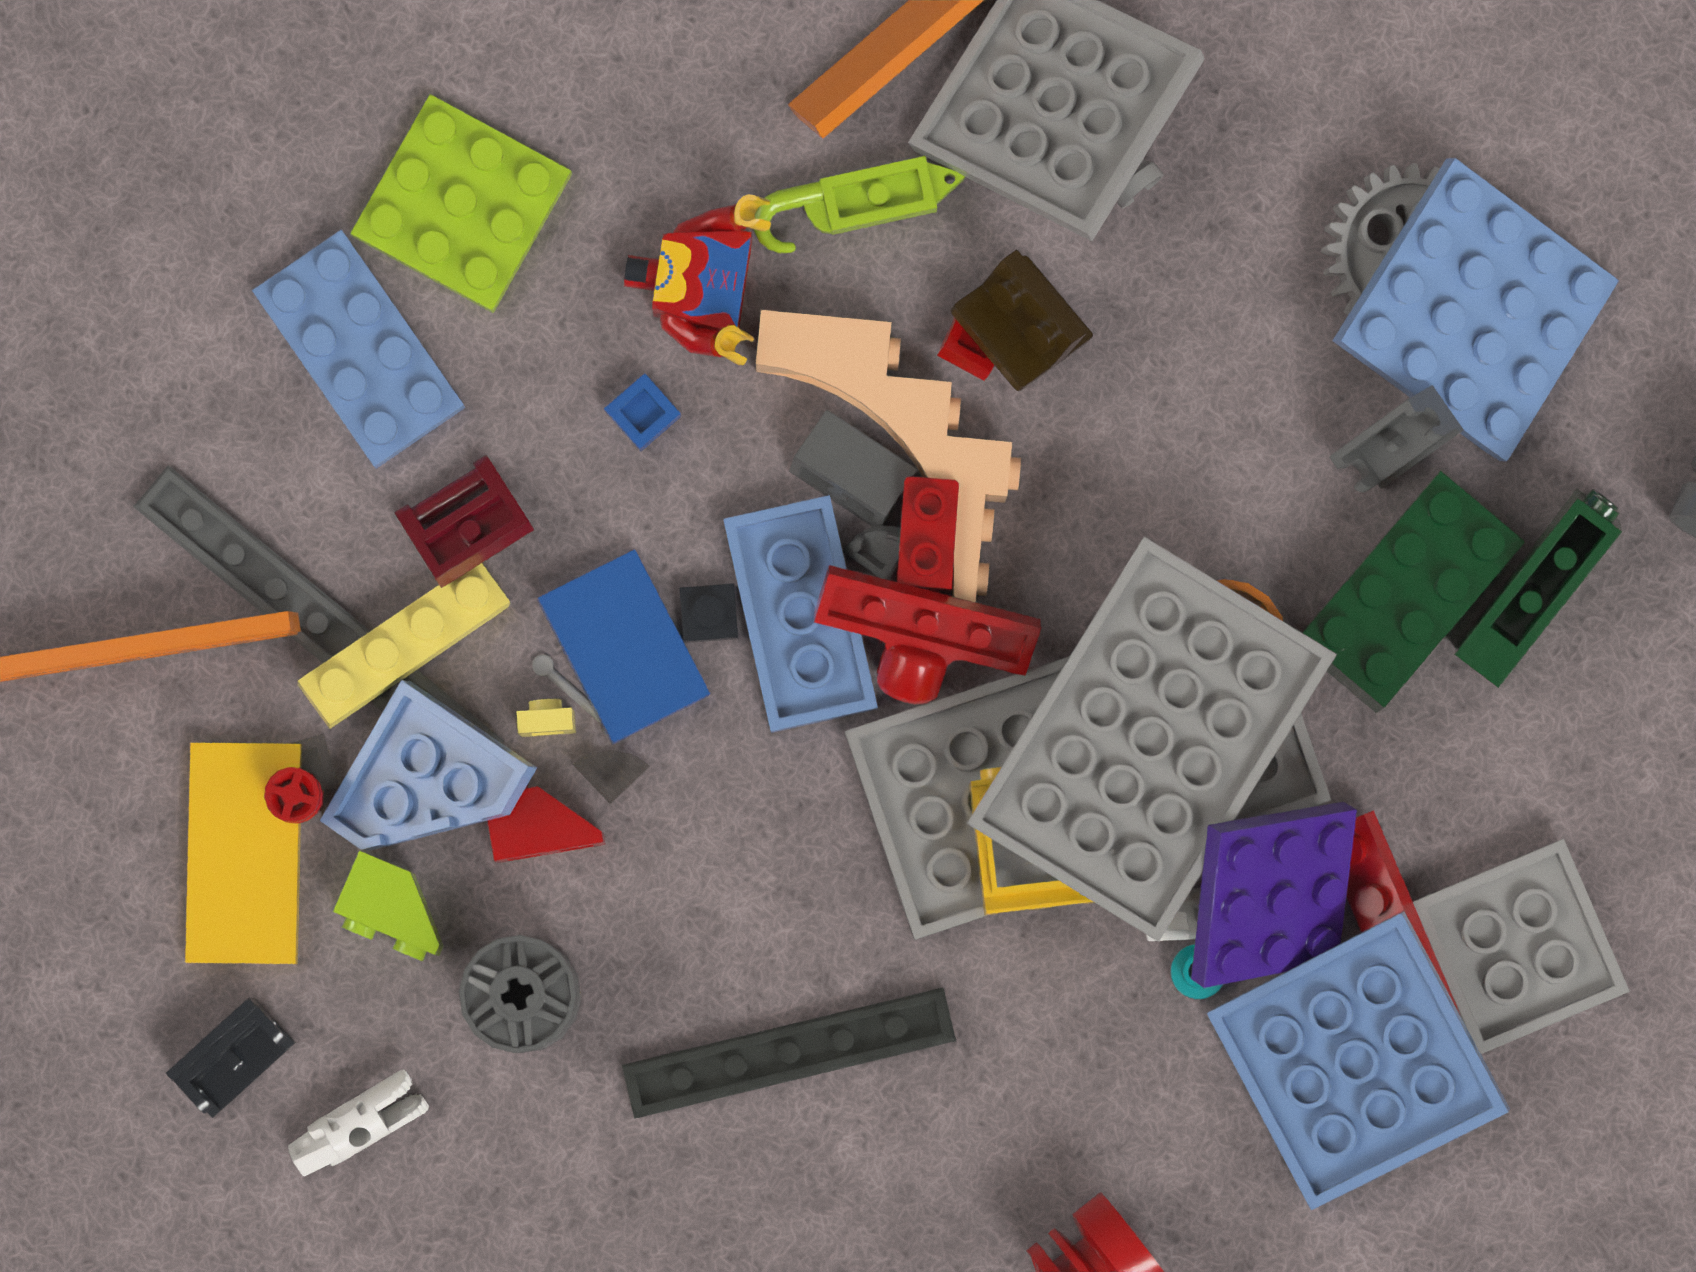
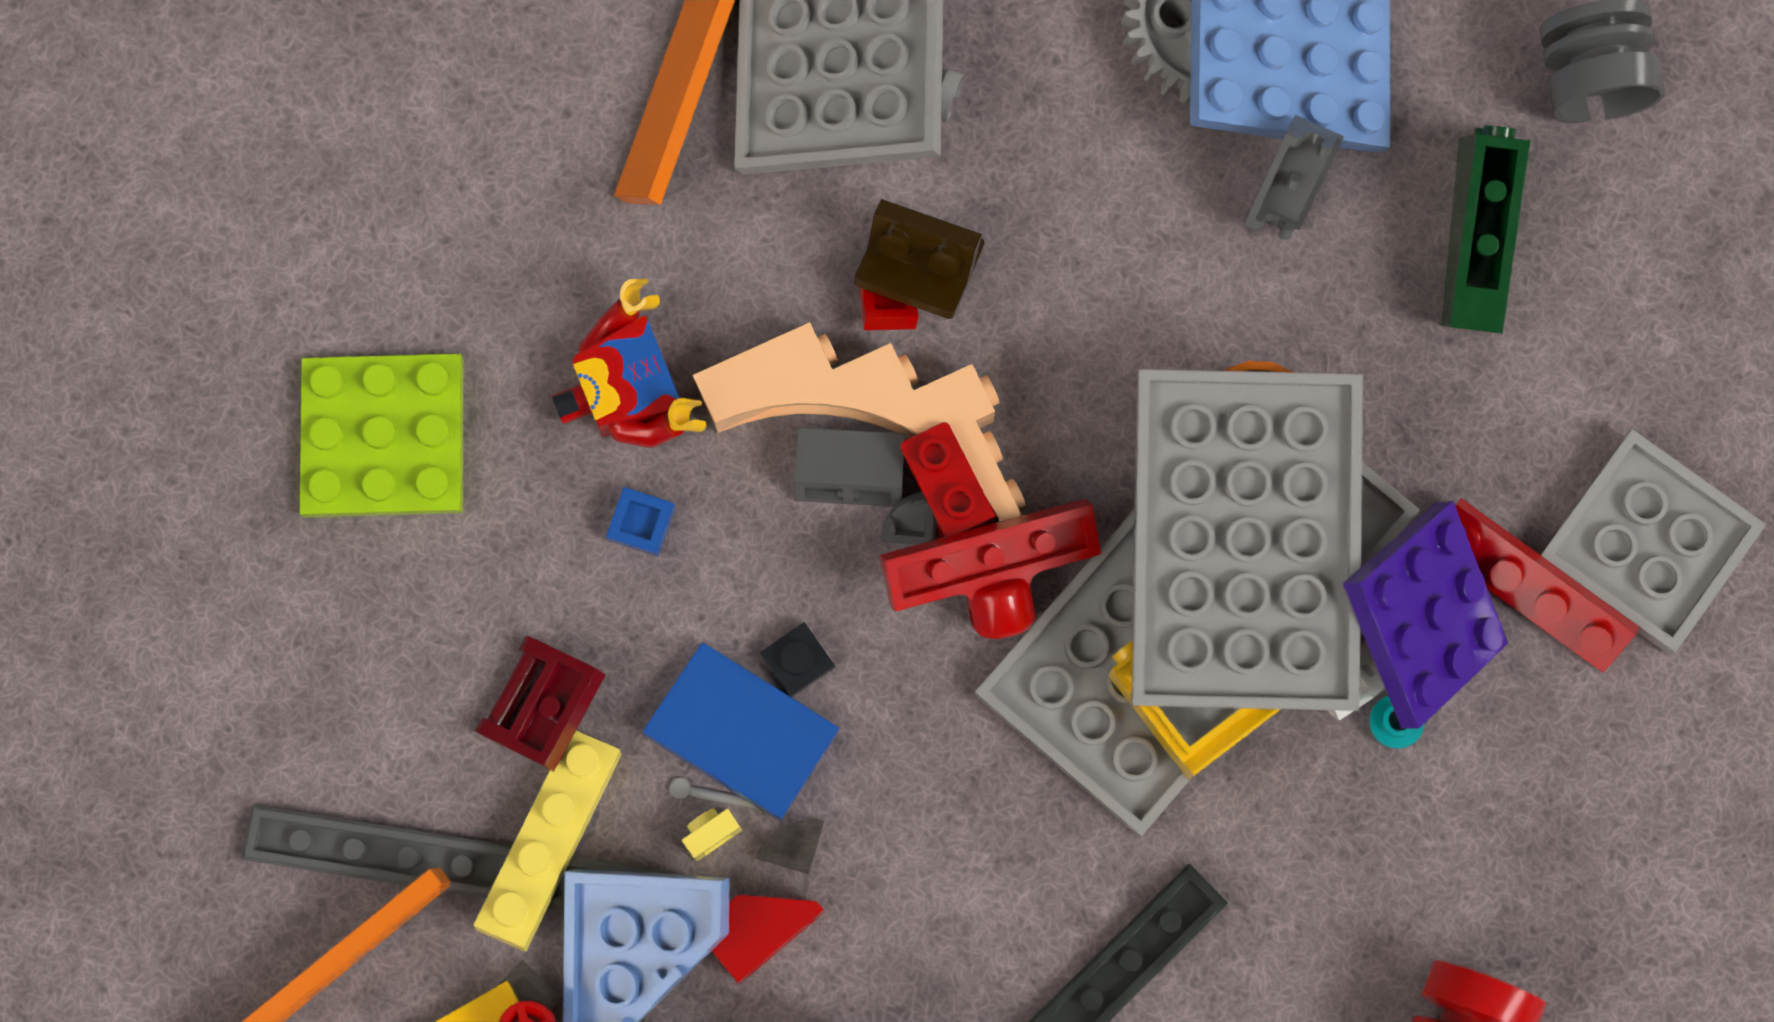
camera: 25 degrees left, 5 degrees down
(358, 349) = (363, 609): medium blue plate -> none
(780, 567) = (839, 587): medium blue plate -> none
(861, 198) = (723, 237): lime plate -> none
(1358, 1061) = (1581, 716): medium blue plate -> none
(1411, 590) = (1381, 292): dark green brick -> none

